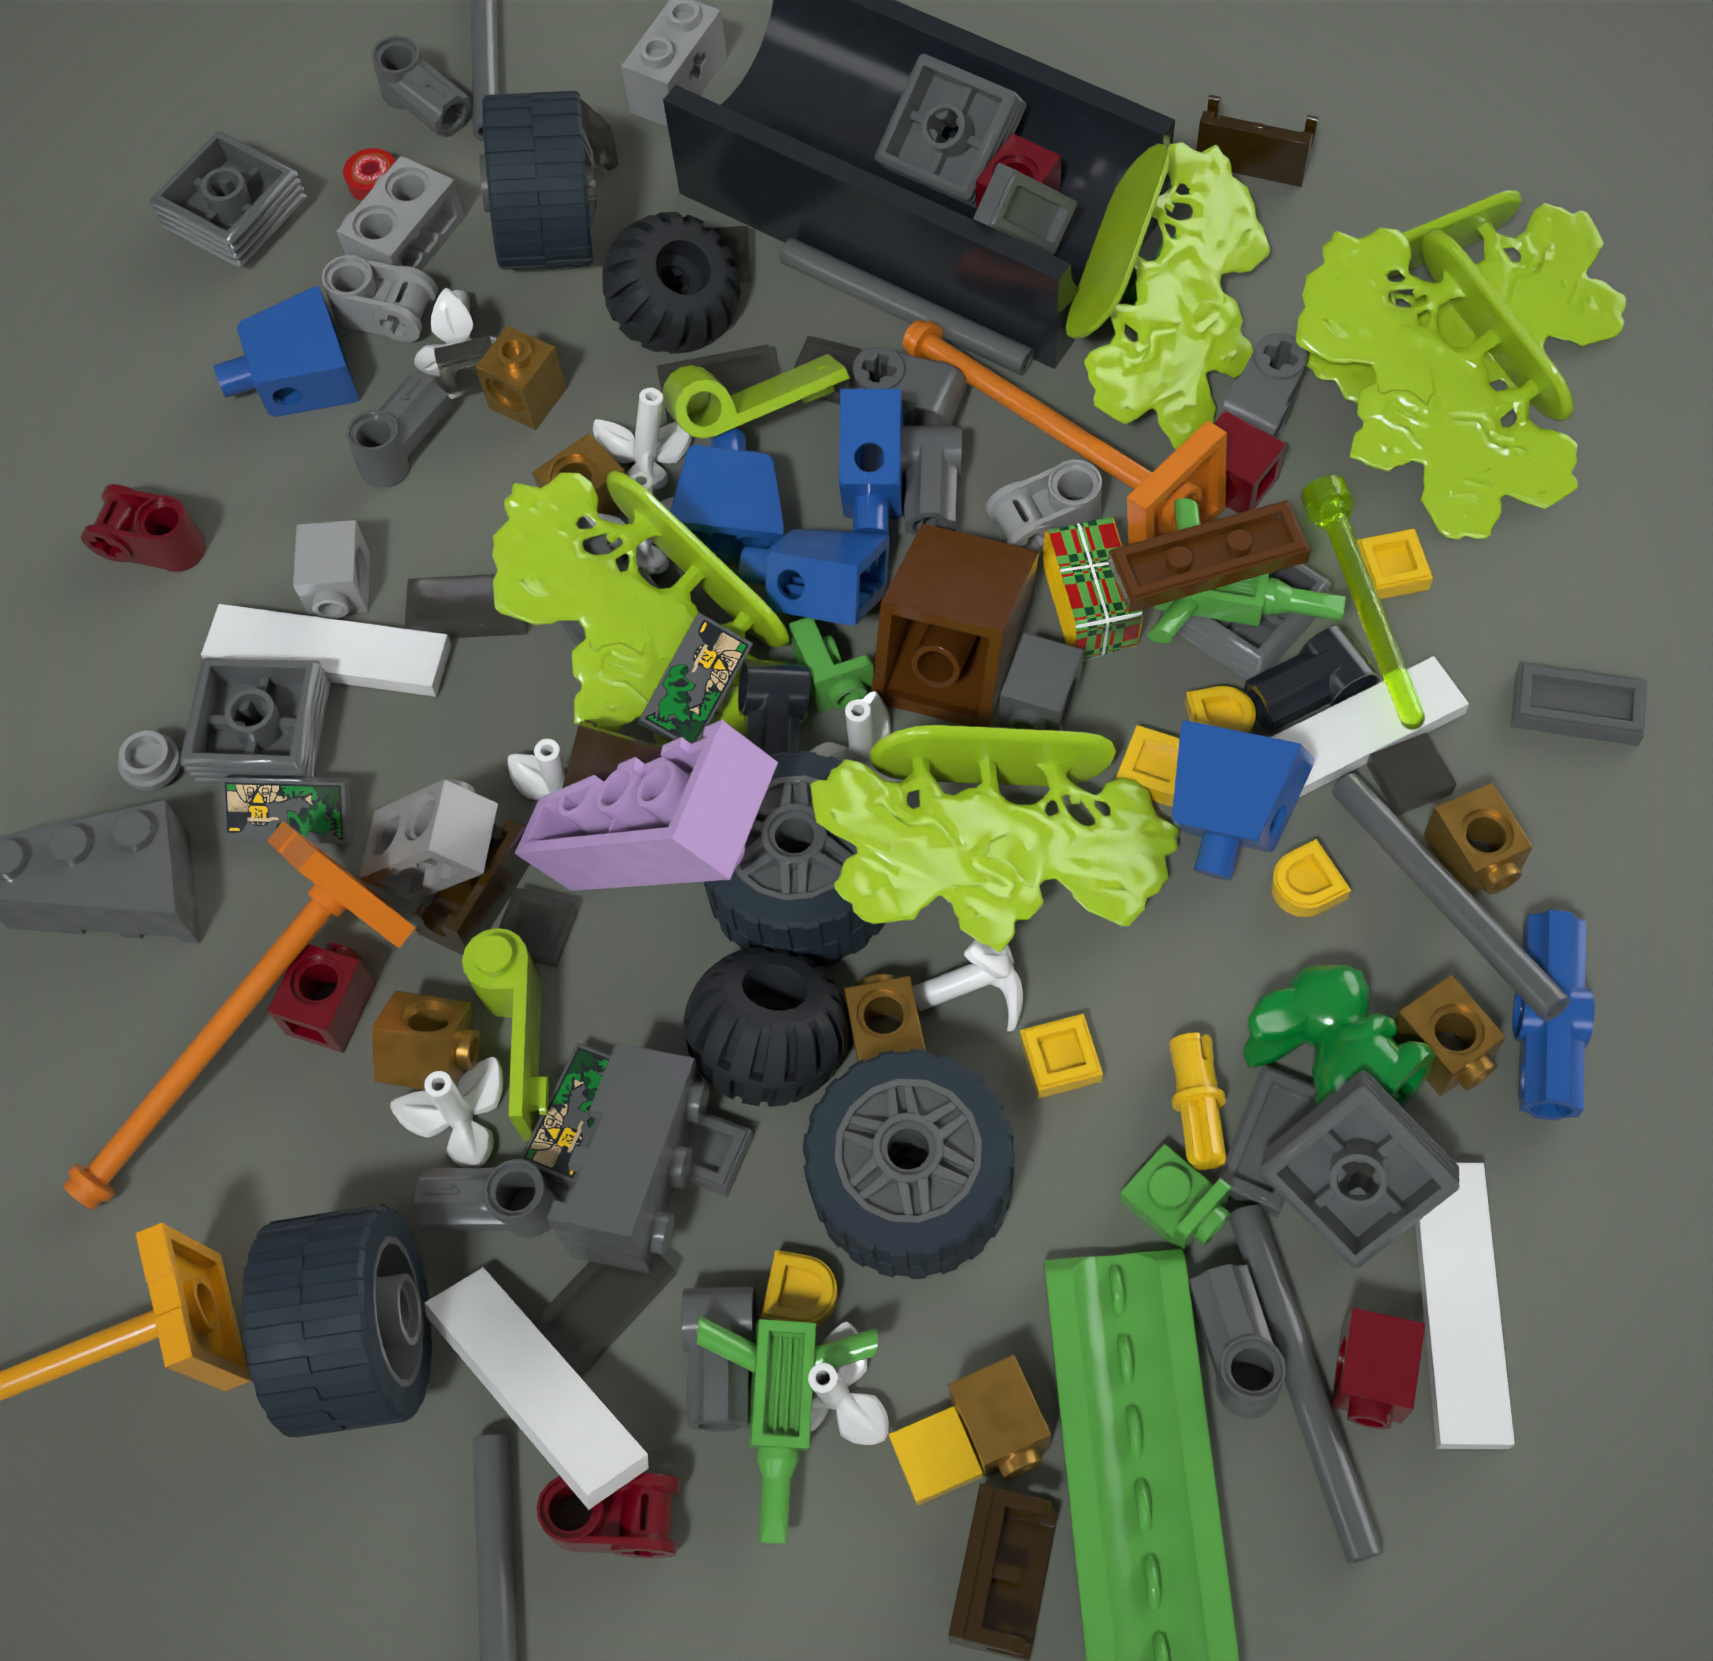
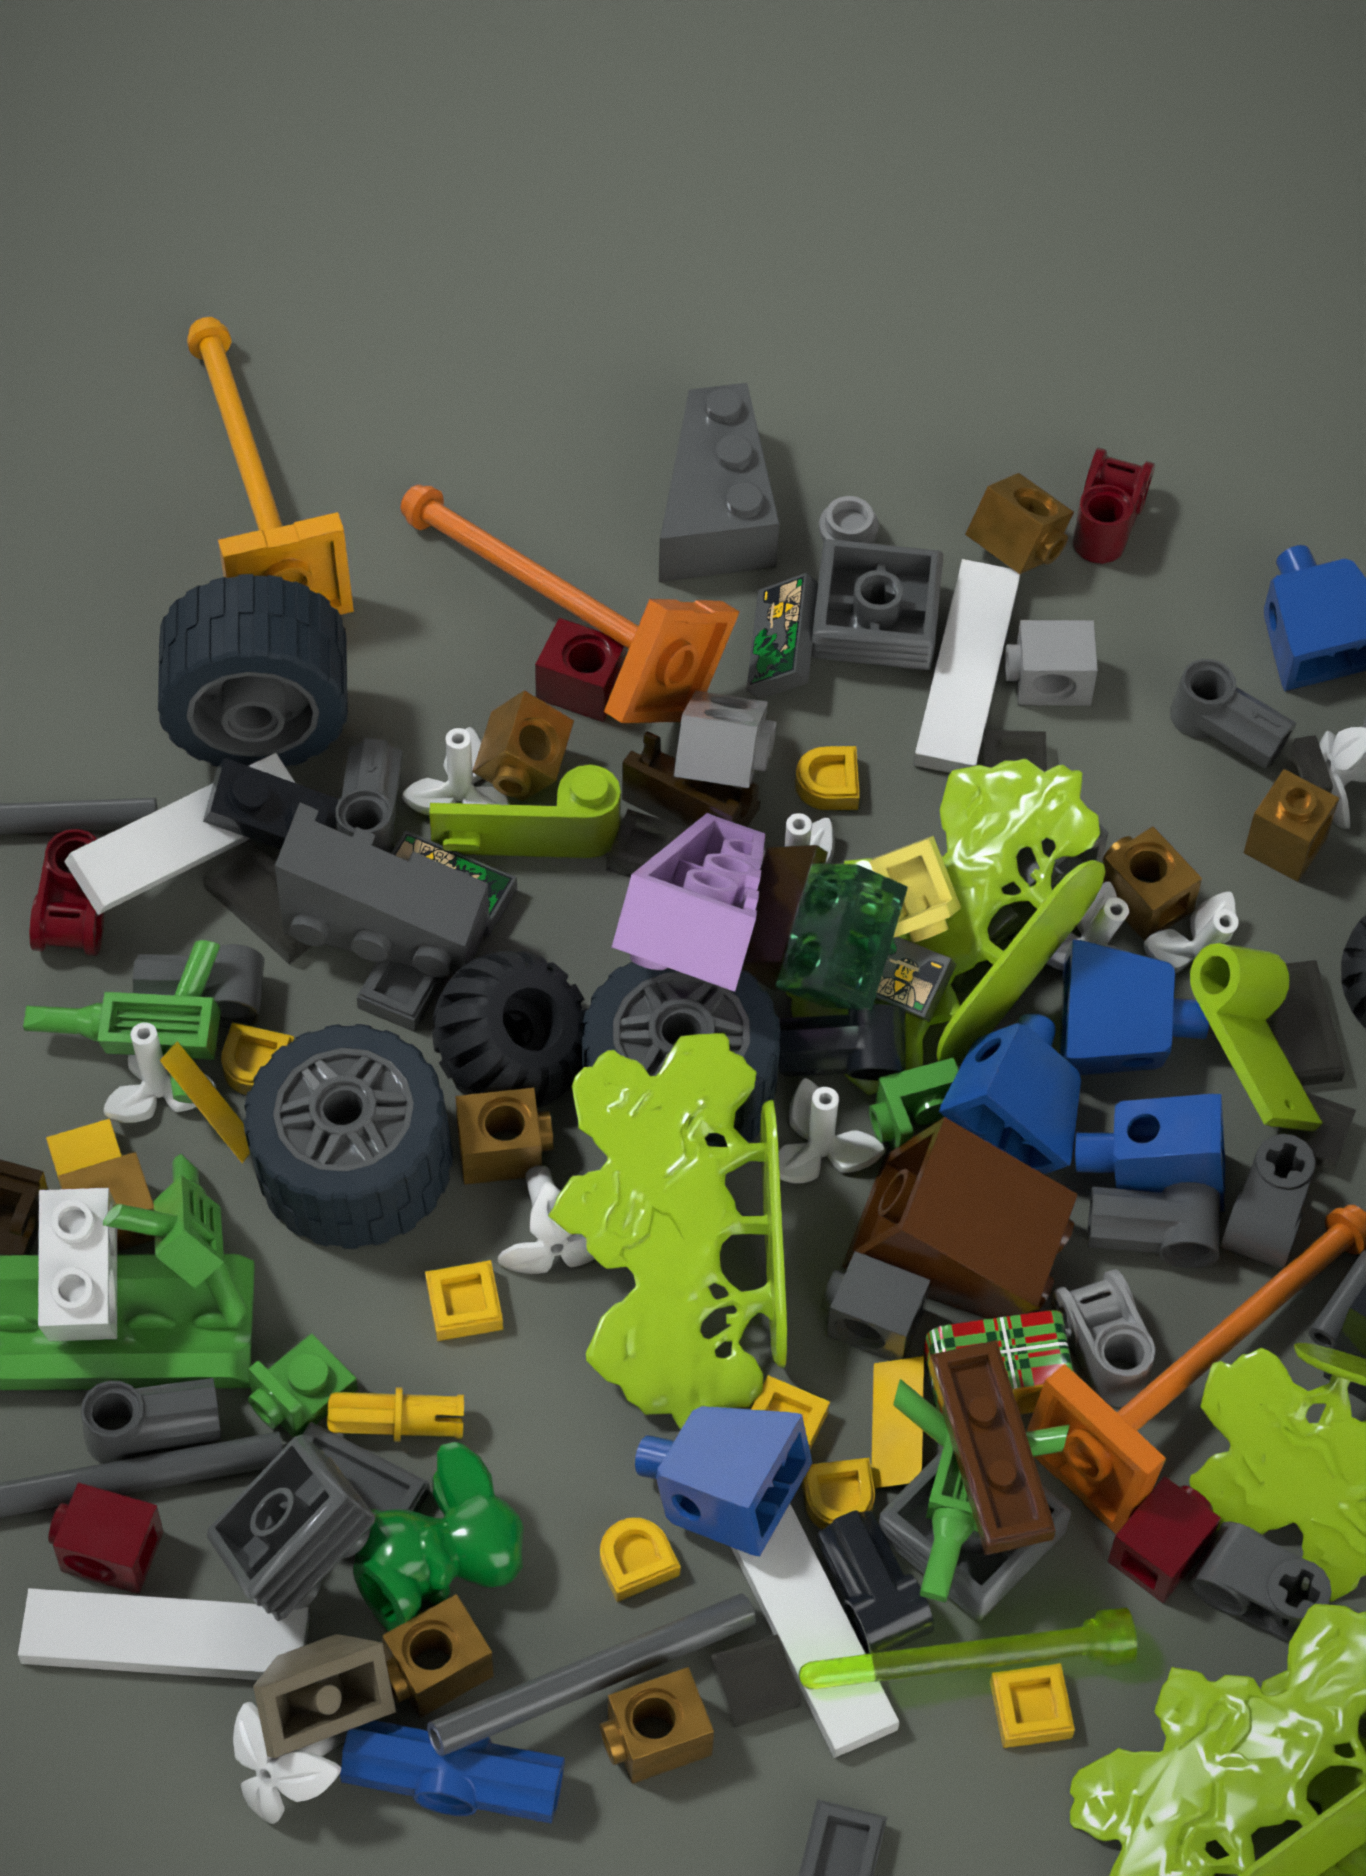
camera: 85 degrees right, 5 degrees down
(169, 597) = (1020, 523): none -> pearl gold brick
(454, 758) = (829, 778): none -> yellow tile
(503, 1296) = (261, 803): none -> black plate
(632, 637) = (929, 891): none -> light yellow bracket
(692, 683) = (841, 936): none -> clear green brick
(873, 1319) = (207, 1099): none -> yellow sticker
(1041, 1311) = (186, 1235): none -> bright green piece
(1107, 1415) = (77, 1265): none -> white brick
(1142, 674) = (895, 1438): none -> yellow sticker
(1521, 1119) = (322, 1692): none -> dark tan slope
(1596, 1165) = (296, 1774): none -> white plant

